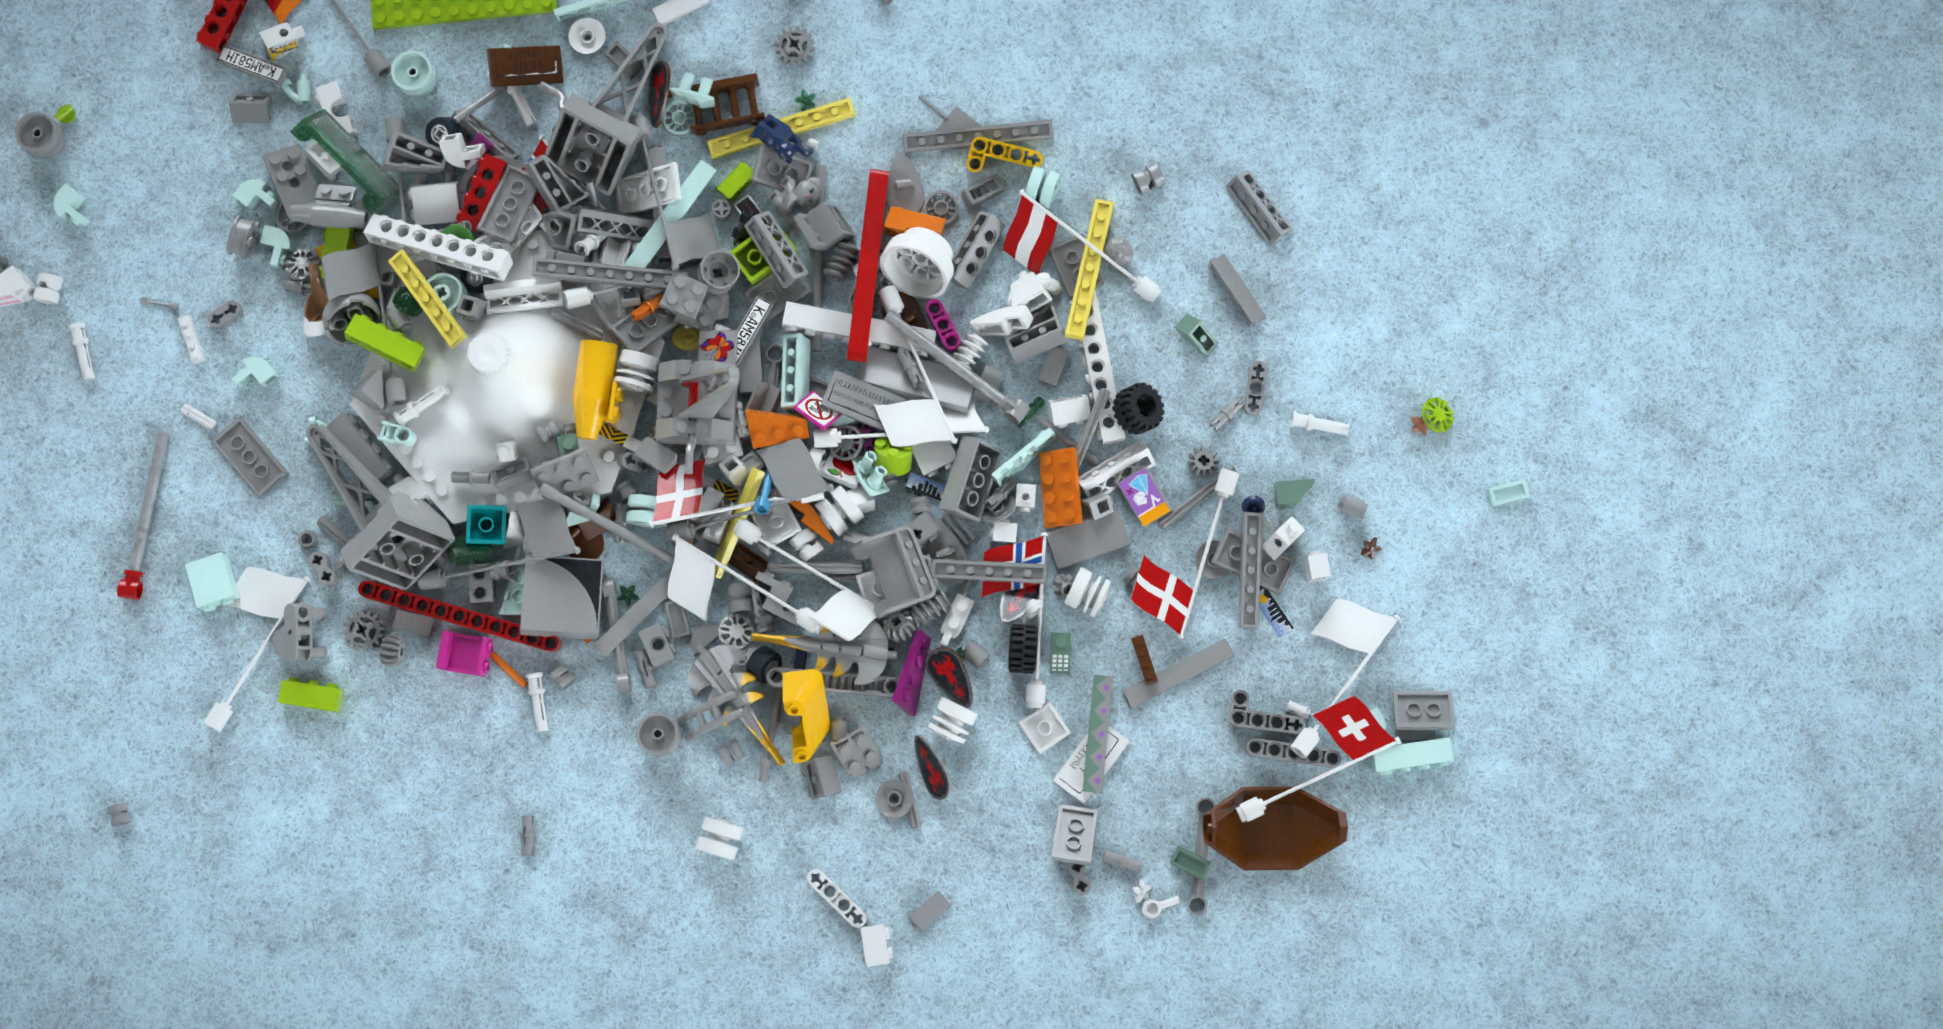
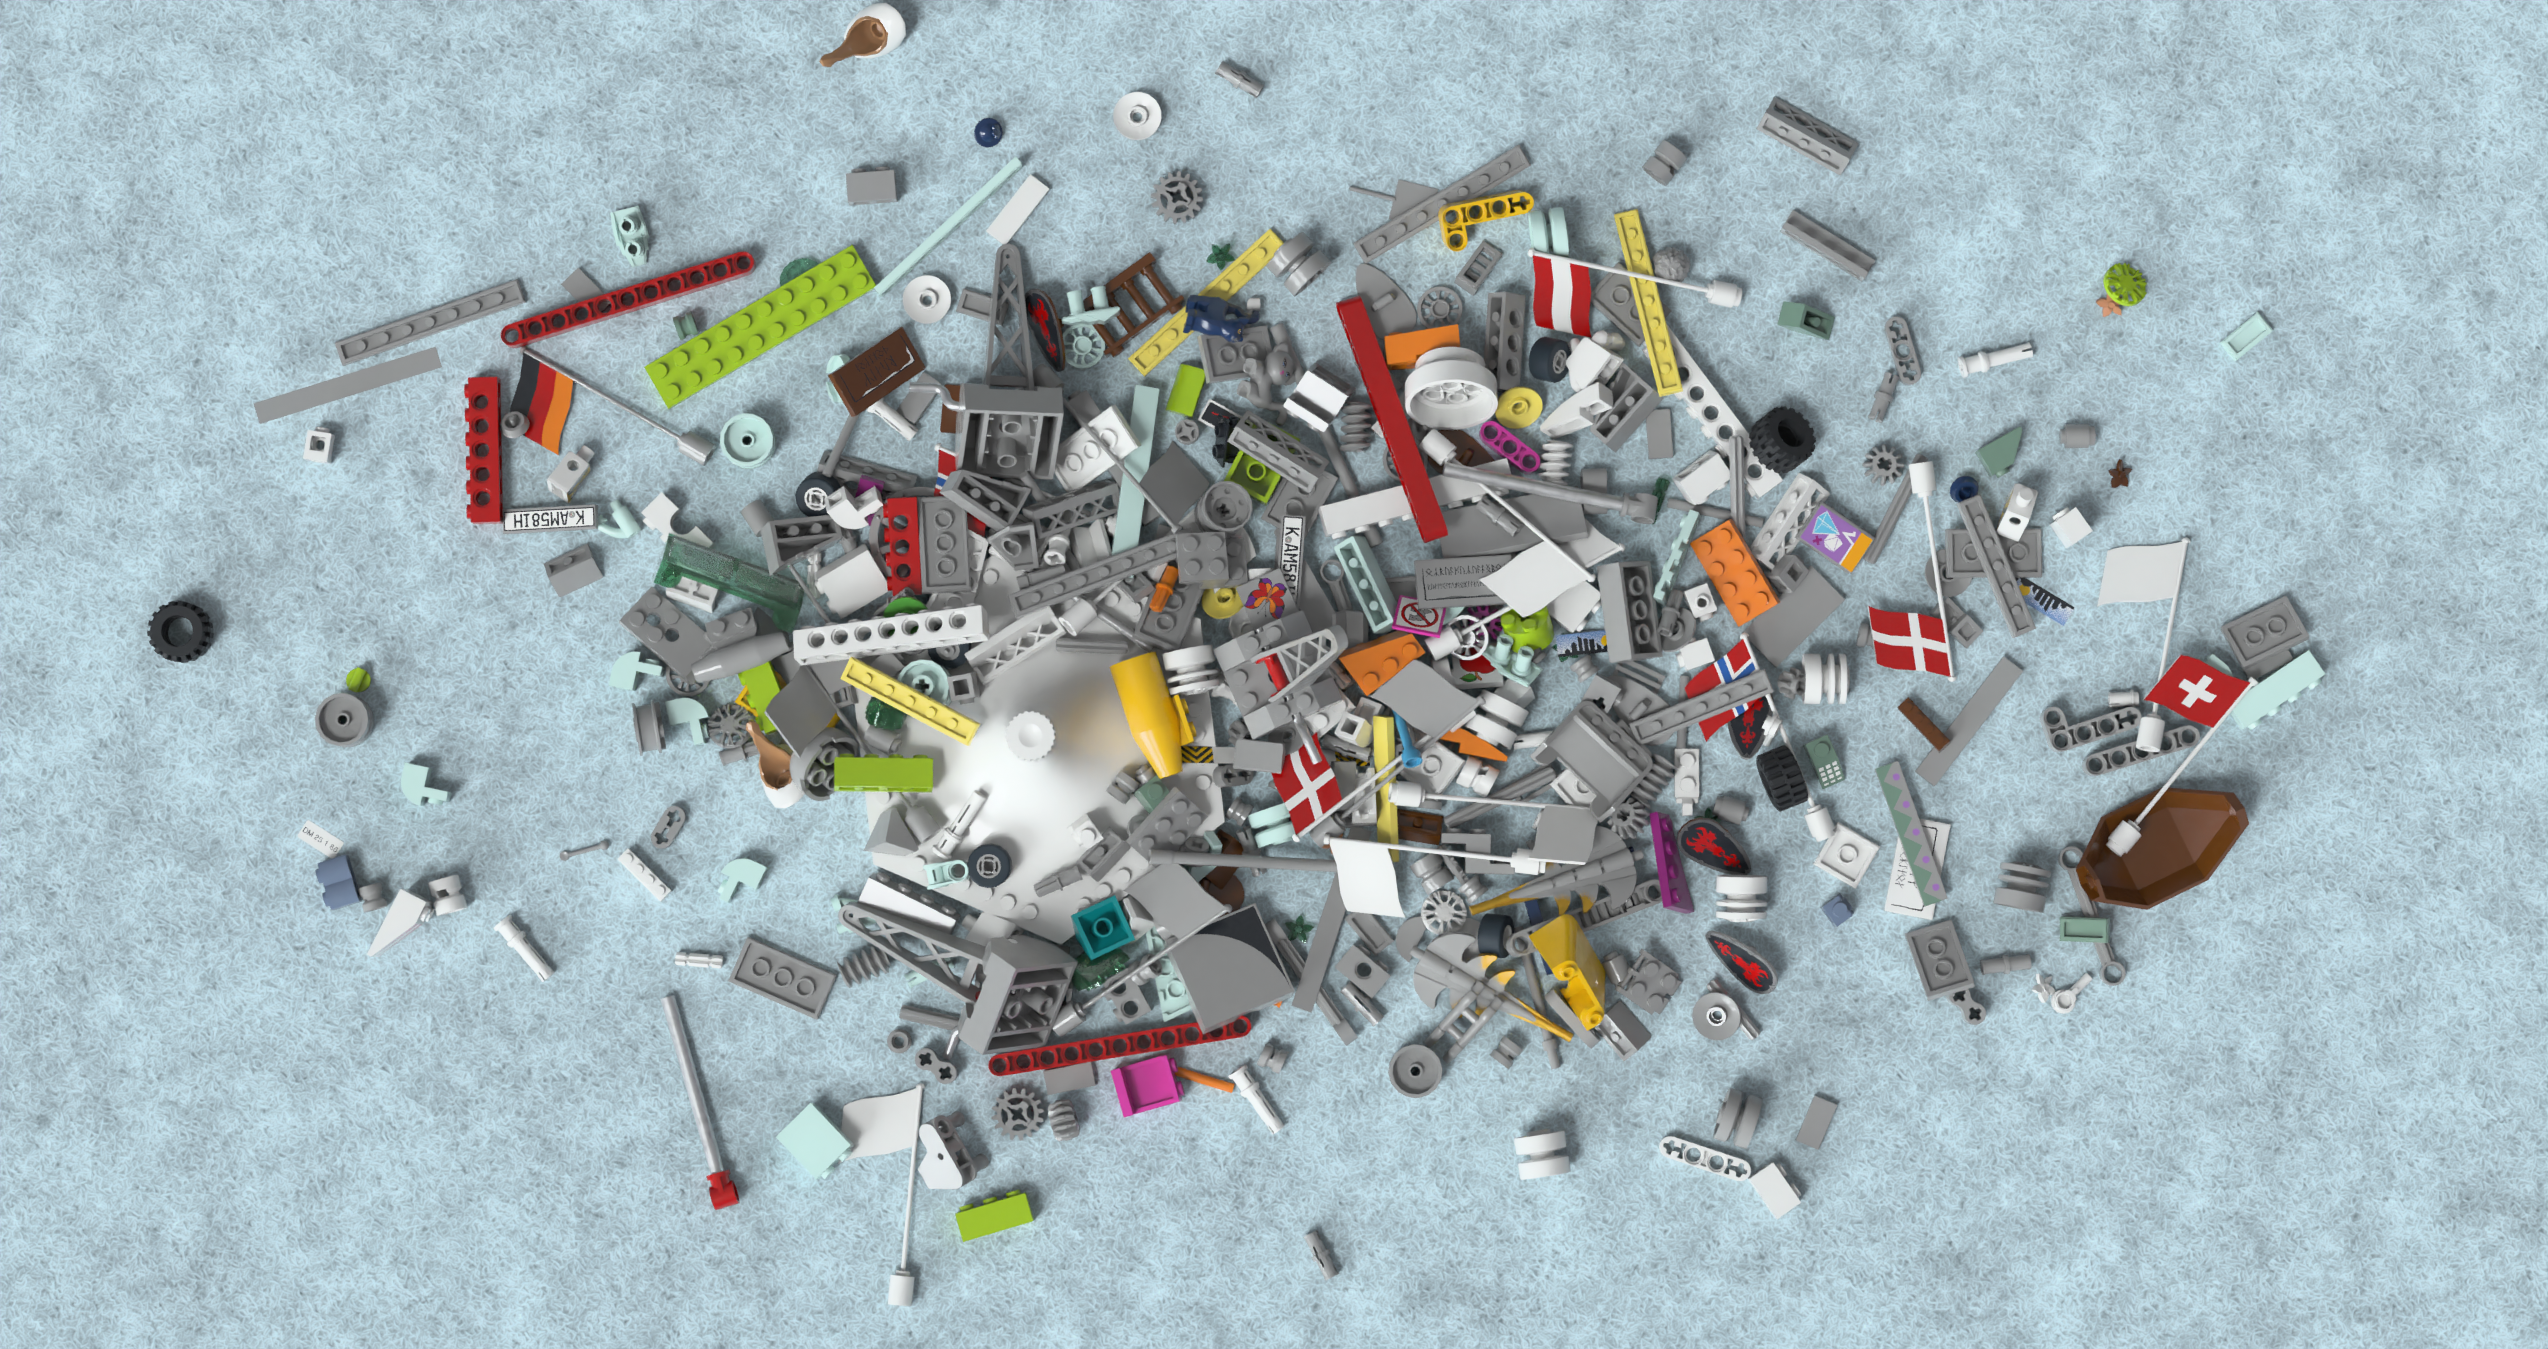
camera: 25 degrees left, 5 degrees up
(308, 476) = (864, 966): none -> light grey piece
(434, 445) = (988, 858): none -> black wheel
(545, 103) = (917, 402): none -> light grey slope
(723, 482) = (1347, 749): none -> light grey pin
(786, 739) = (1561, 1006): none -> light grey beam
(856, 128) = (1292, 259): none -> light grey wheel
(870, 876) = (1735, 1117): none -> light grey wheel
(962, 307) = (1522, 414): none -> light yellow dish
(999, 276) = (1549, 359): none -> black wheel
(1019, 763) = (1837, 910): none -> sand blue brick
(1159, 810) = (2022, 887): none -> light grey wheel
(1204, 599) = (1958, 623): none -> light grey slope

